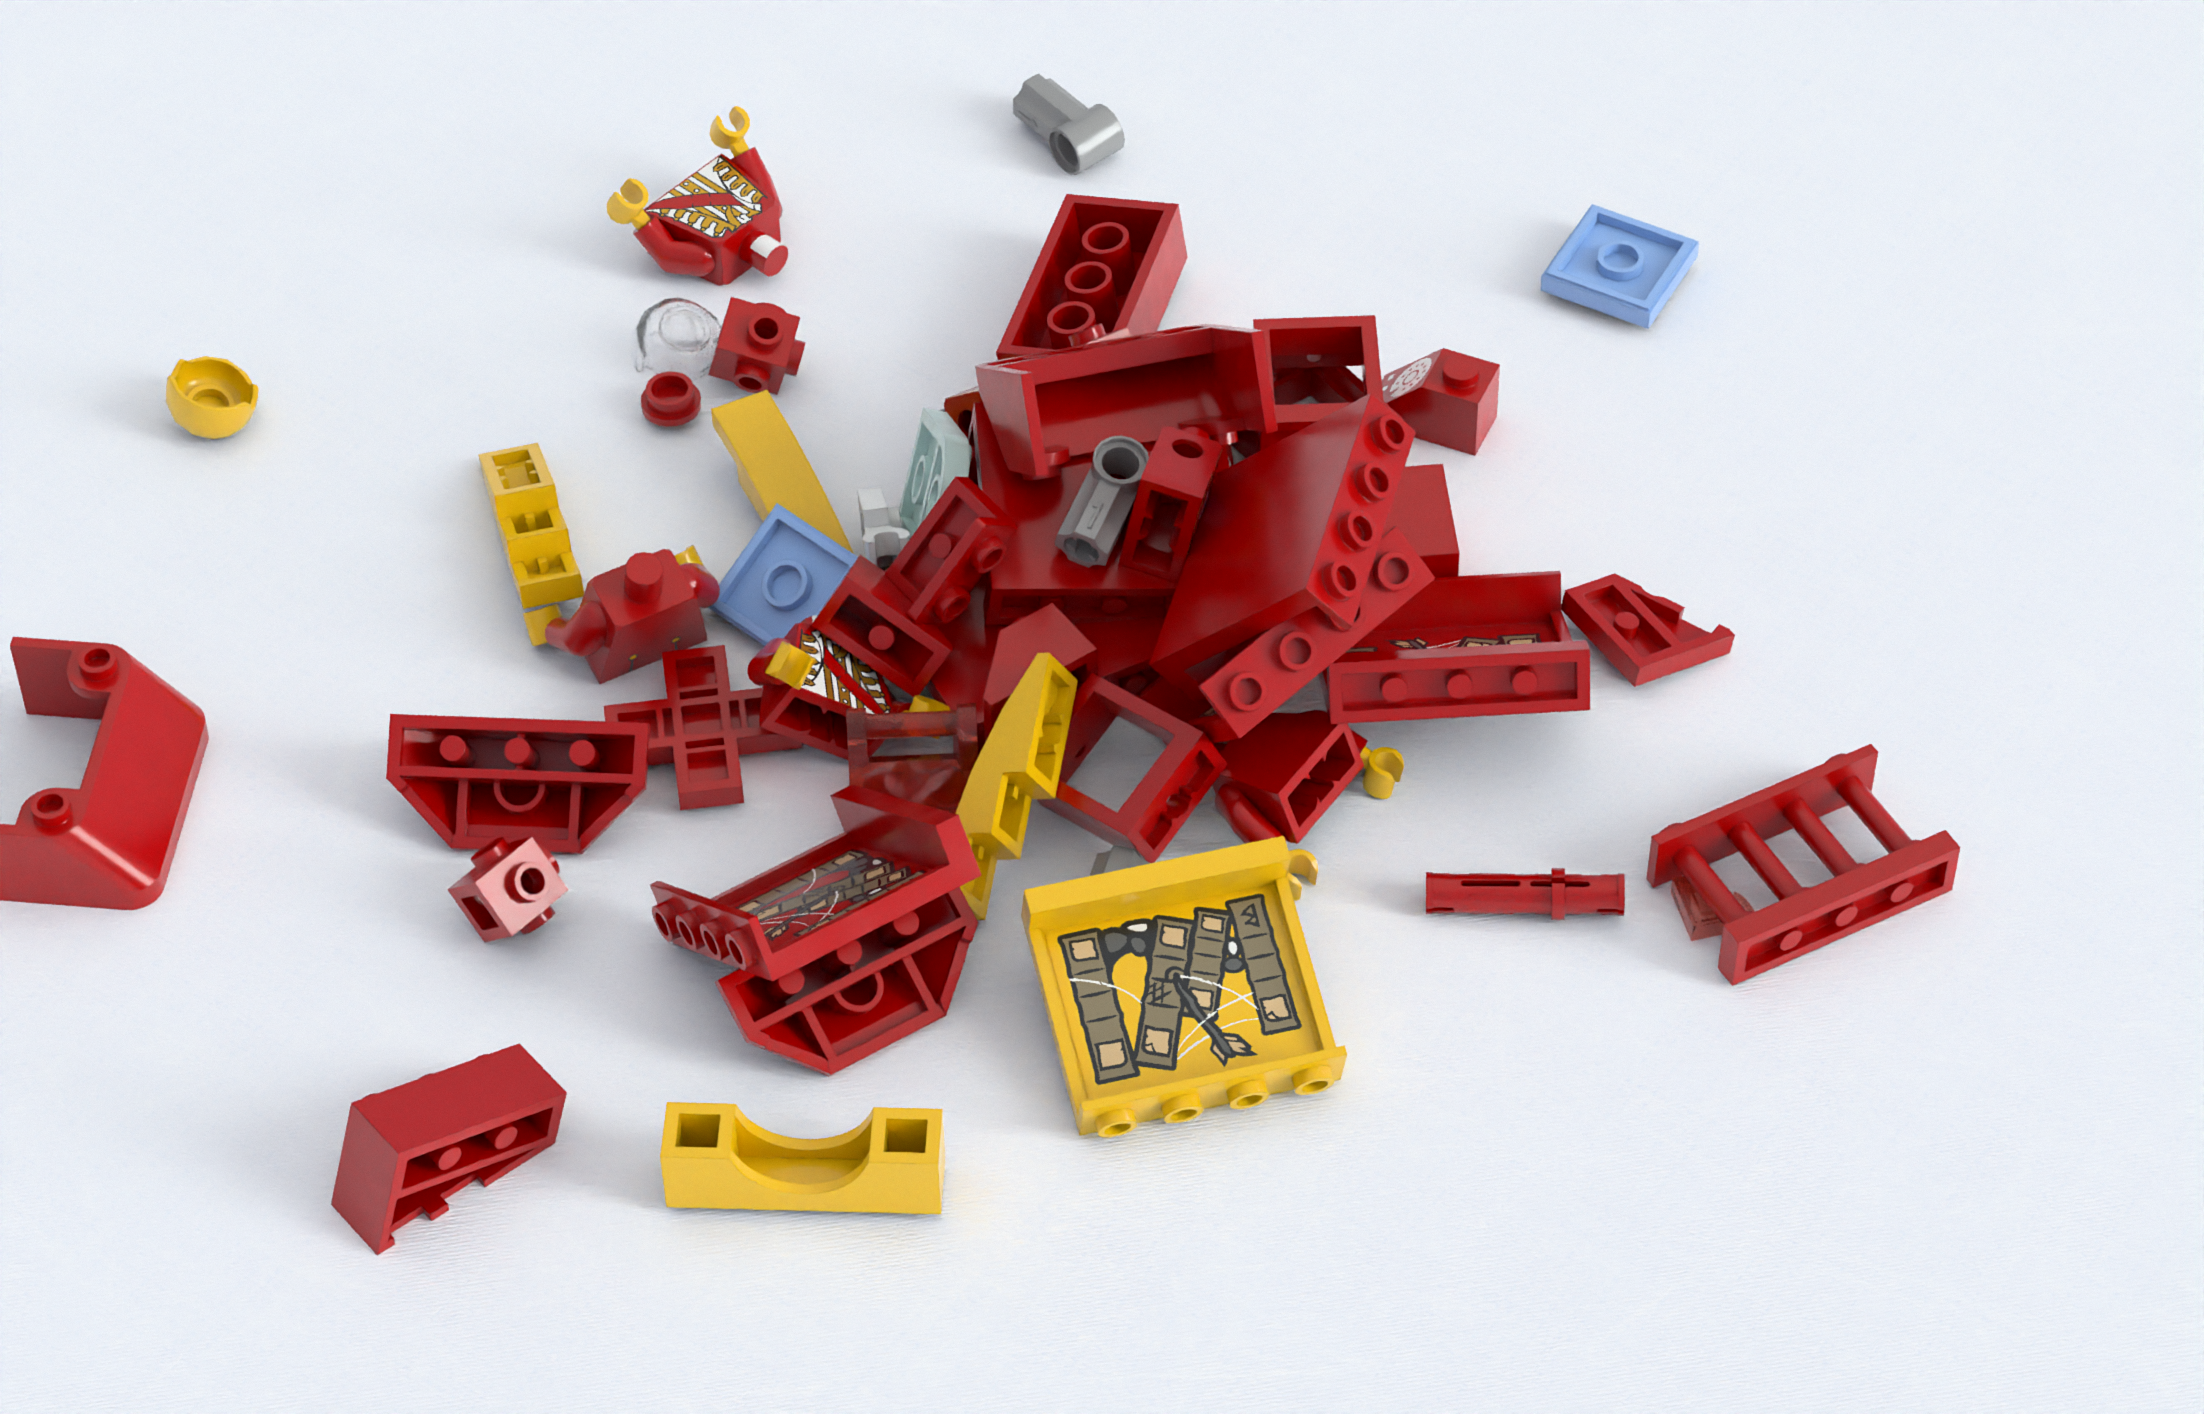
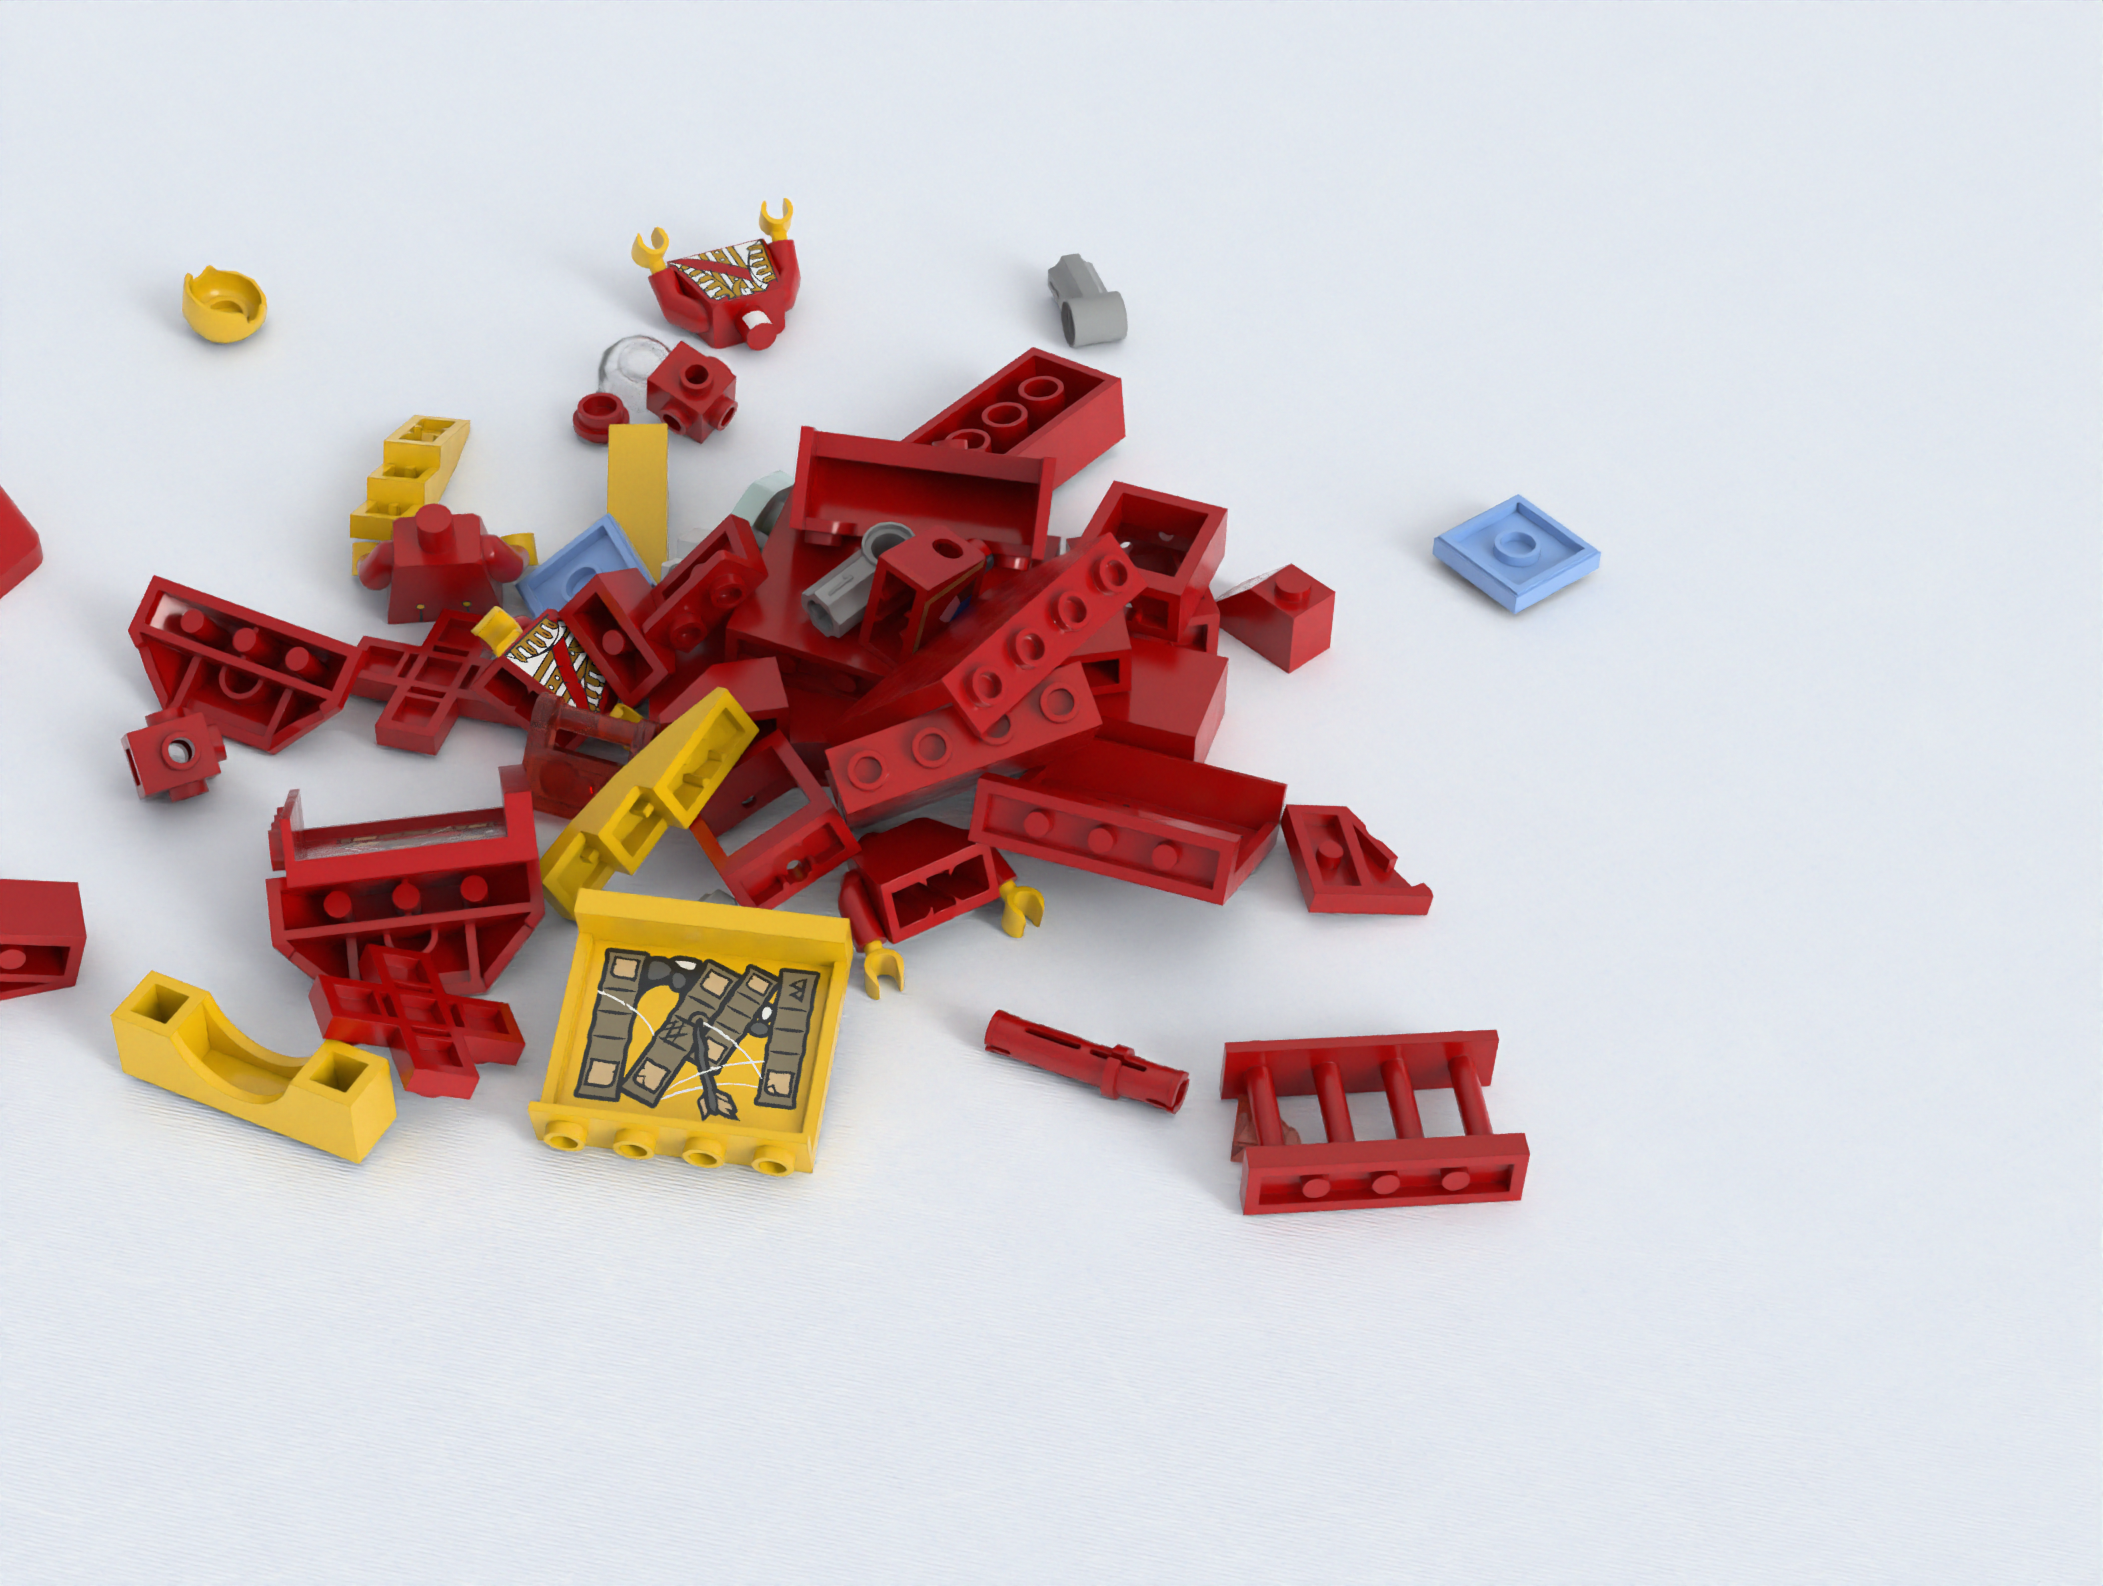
camera: 20 degrees right, 5 degrees down
(907, 1061) = (428, 1032): none -> red plate

